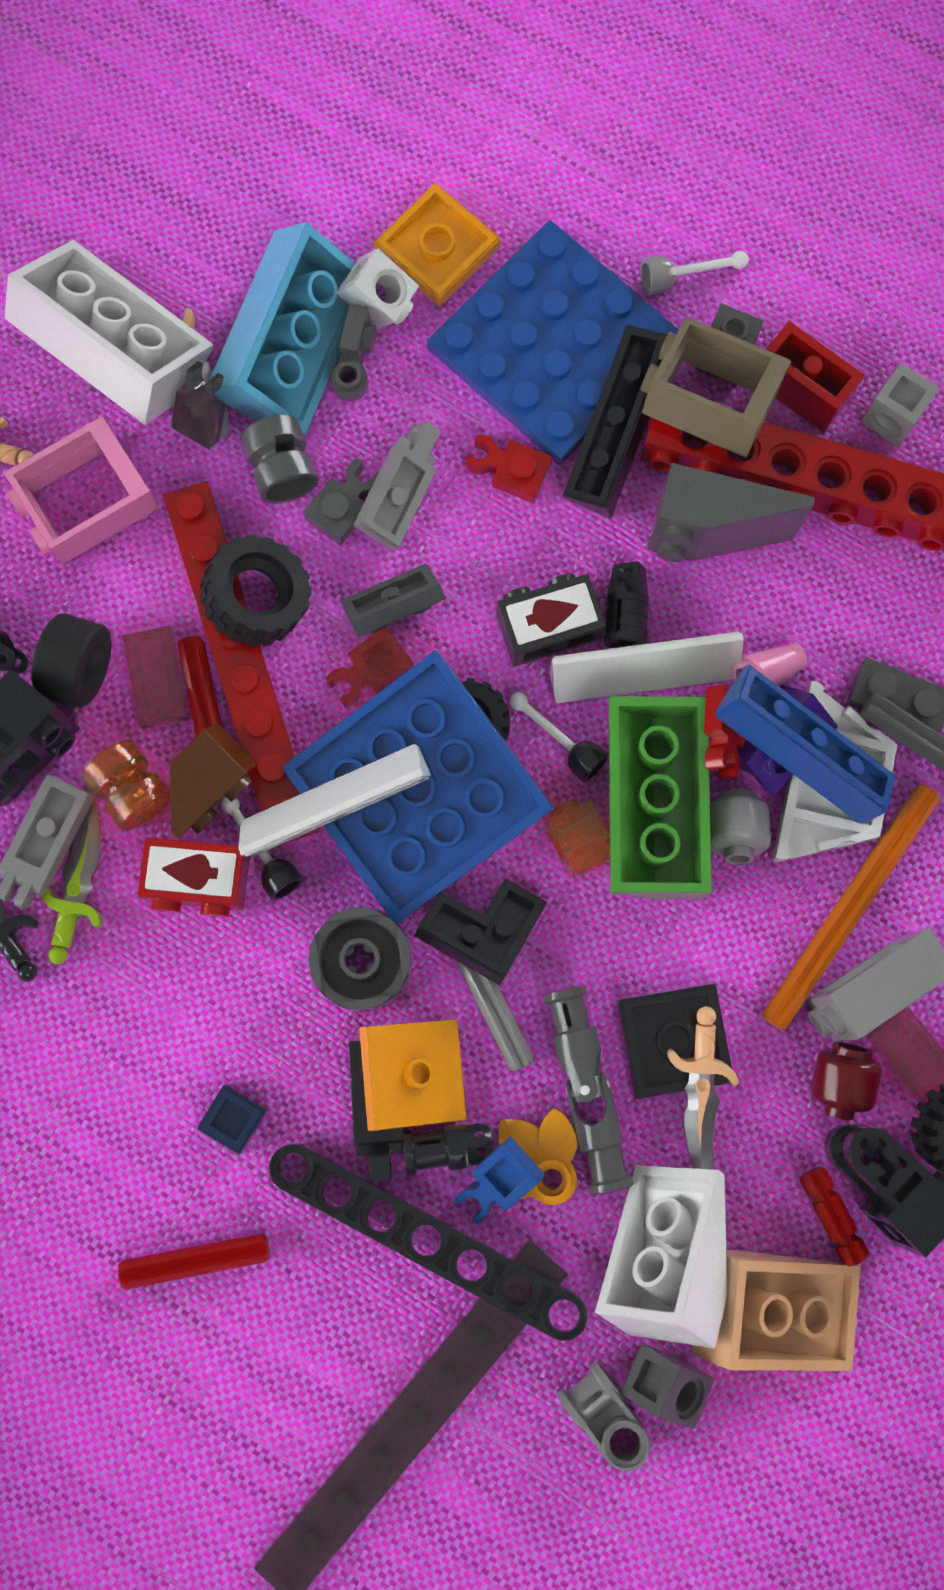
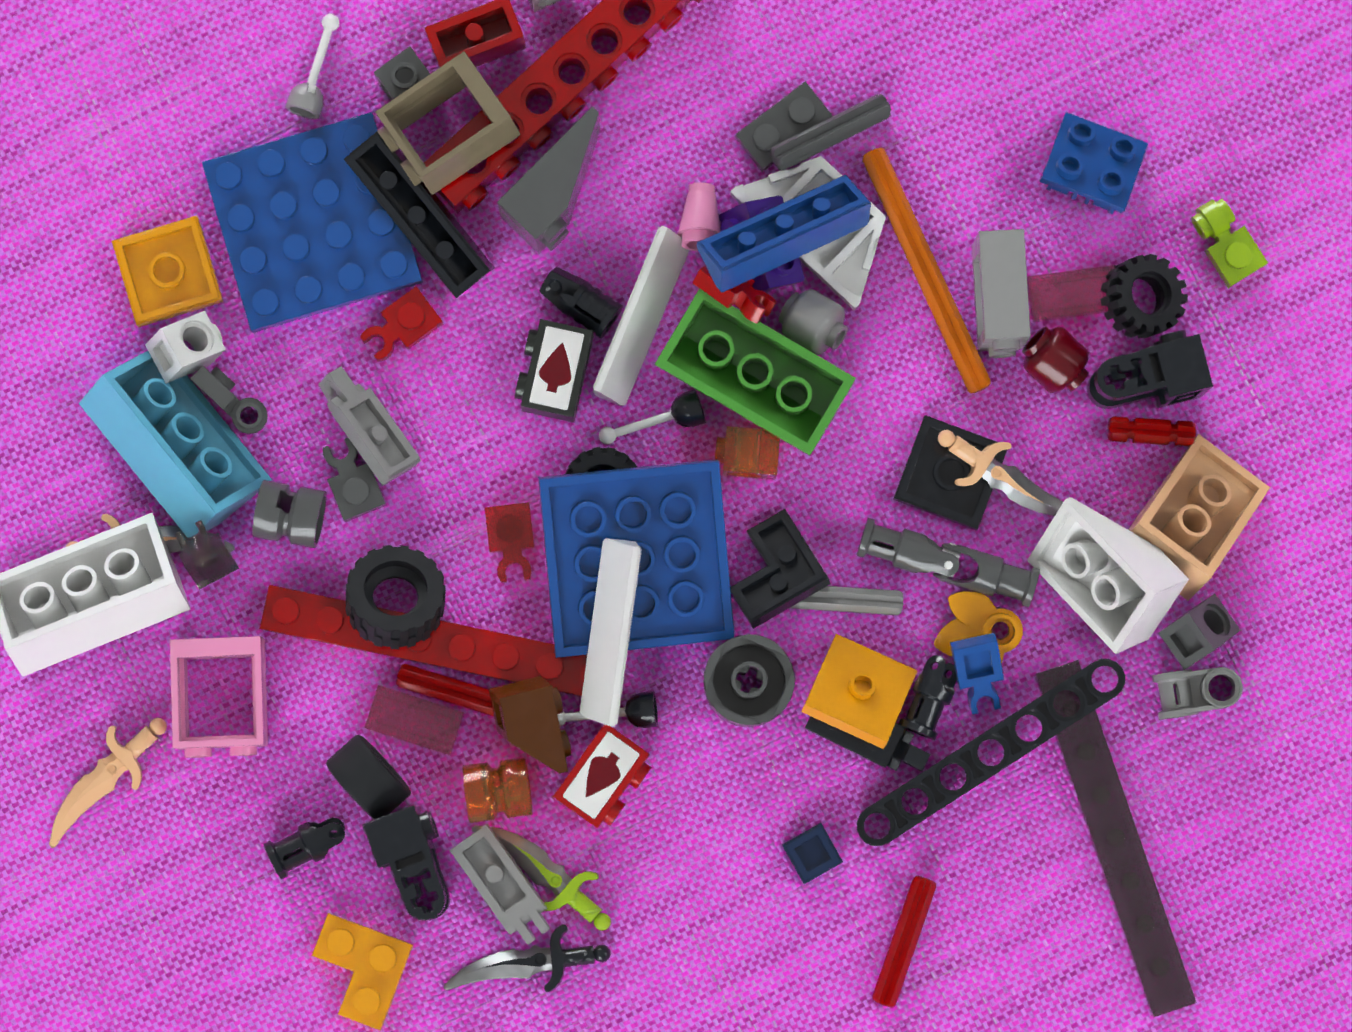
camera: 60 degrees left, 5 degrees up
(393, 600) = (464, 489): dark grey plate -> none

